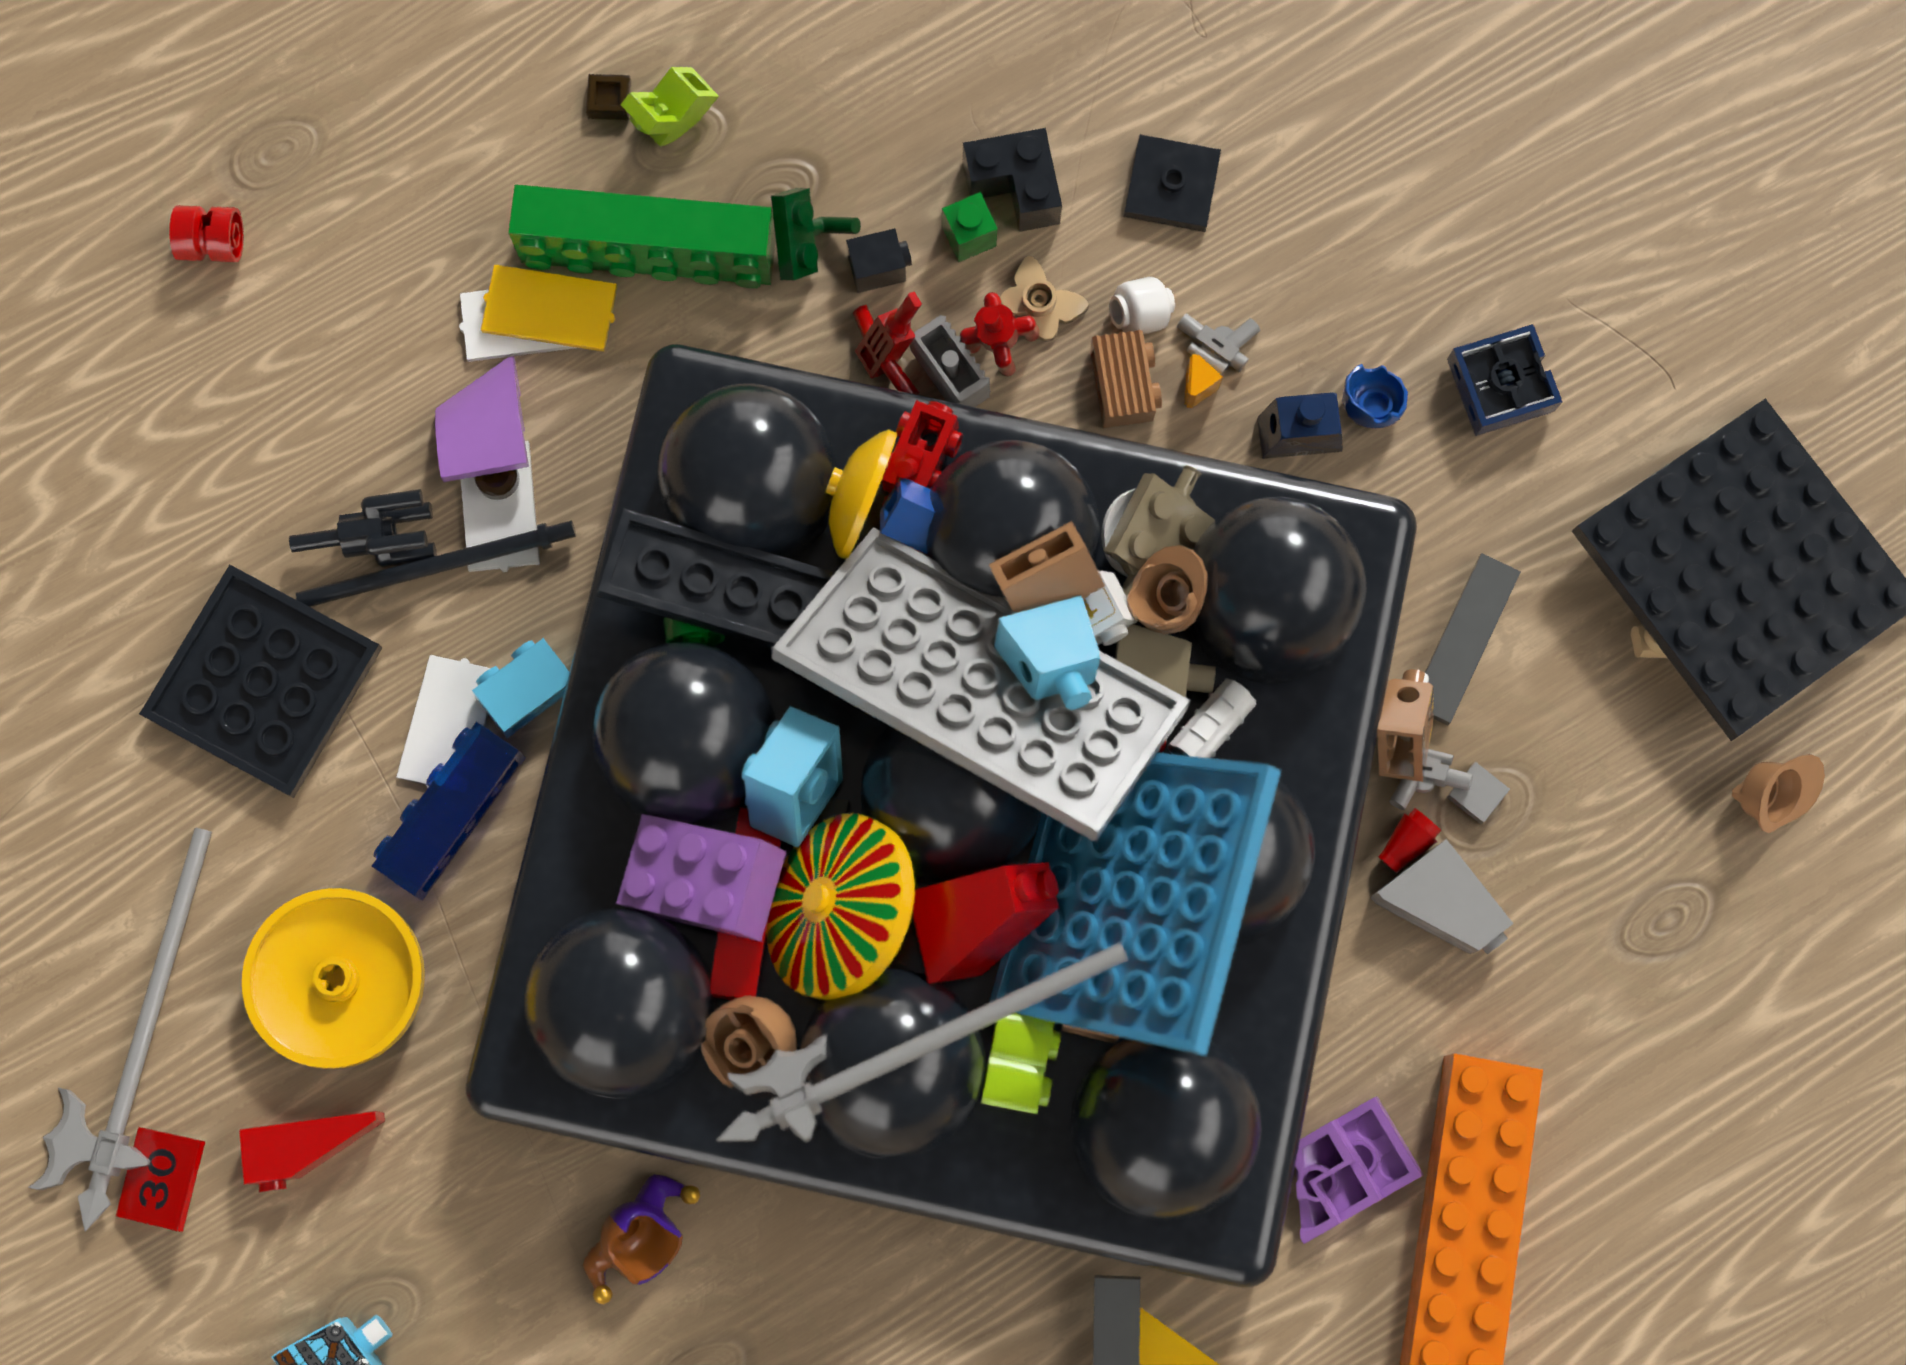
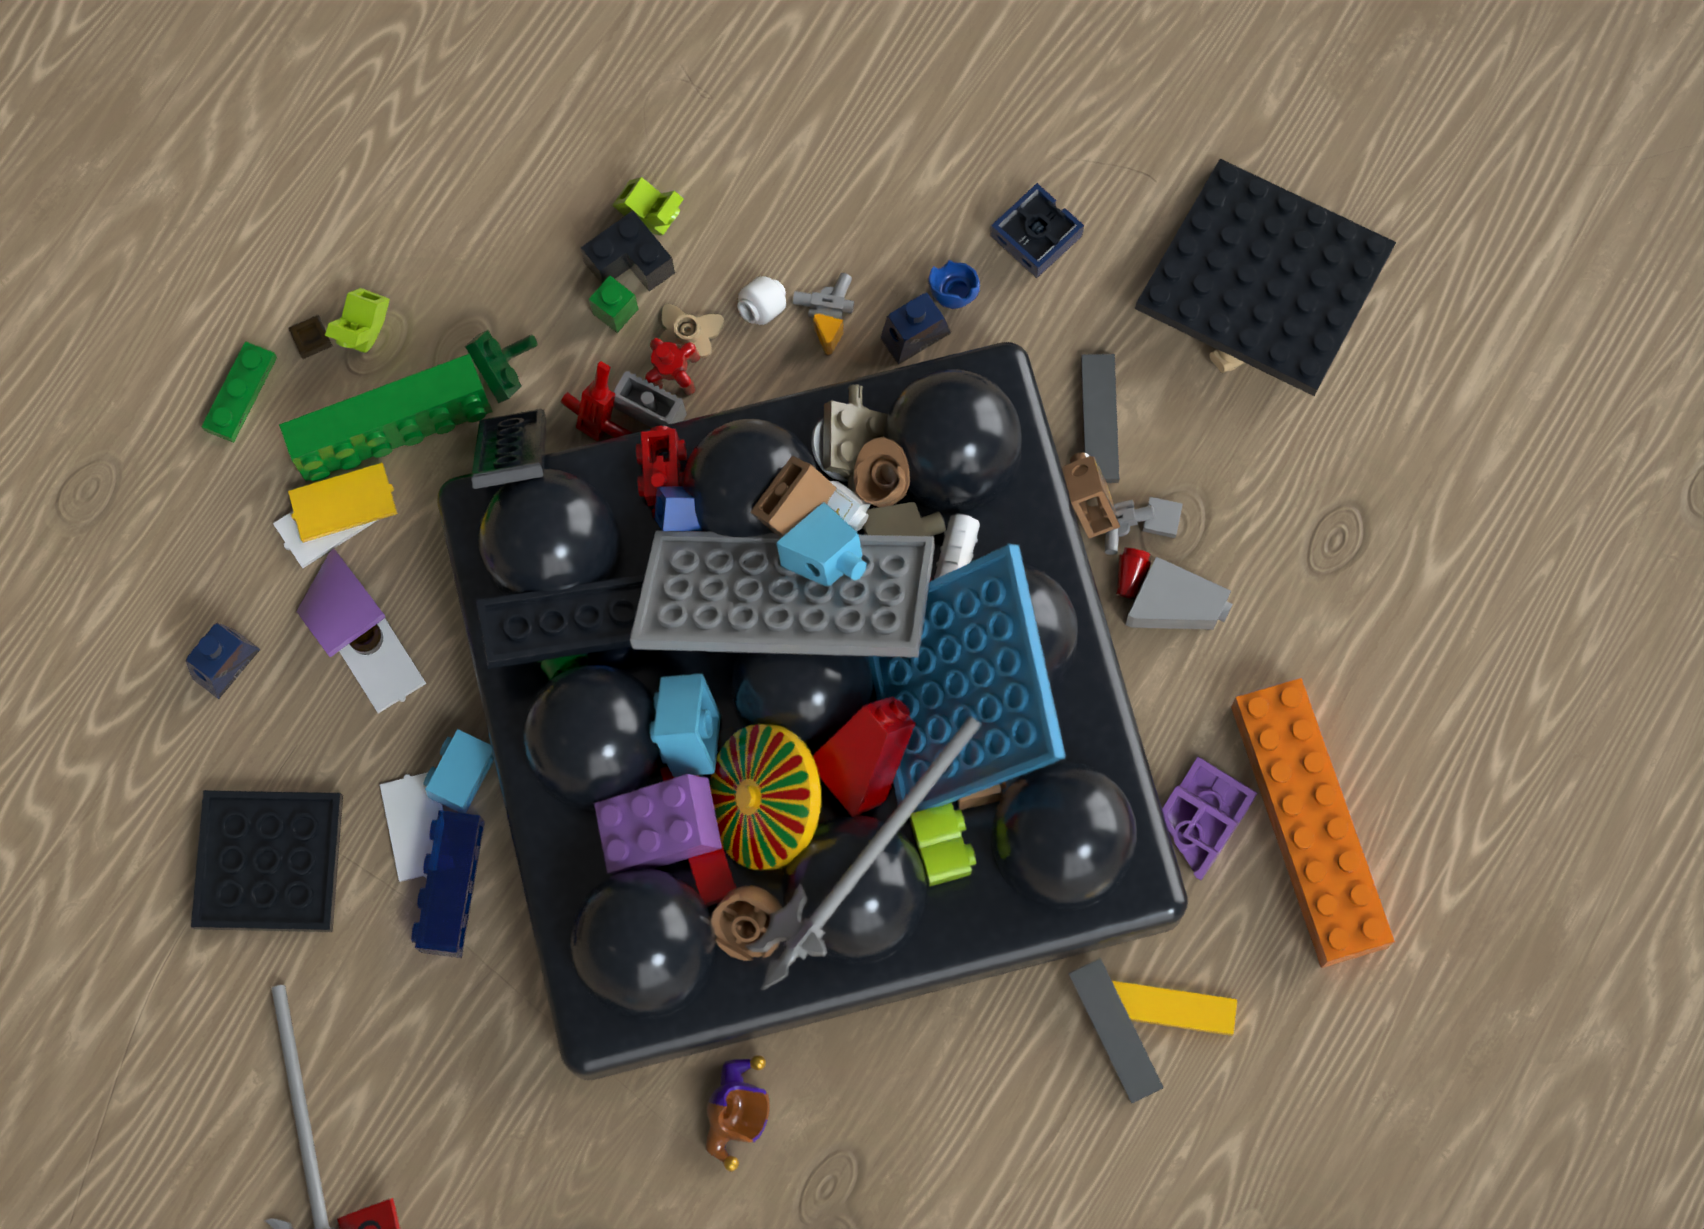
camera: 20 degrees left, 5 degrees down
(200, 233) = (68, 568): red wheel -> none
(296, 1148) = (459, 1173): red slope -> none
(323, 421) = (220, 658): none -> dark blue torso
(333, 978) = (426, 1040): yellow dish -> none
(375, 530) = (297, 716): black plant -> none
(498, 122) = (239, 392): none -> green plate
(542, 536) = (419, 661): black bar -> none
(758, 344) = (509, 448): none -> black tile
(855, 490) = (632, 510): yellow dish -> none
(878, 260) = (560, 357): black brick -> none
(1068, 130) = (652, 207): none -> lime brick
(1124, 379) = (774, 355): medium nougat brick -> none
(1172, 183) = (739, 207): black plate -> none
(1780, 791) = (1365, 414): medium nougat piece -> none

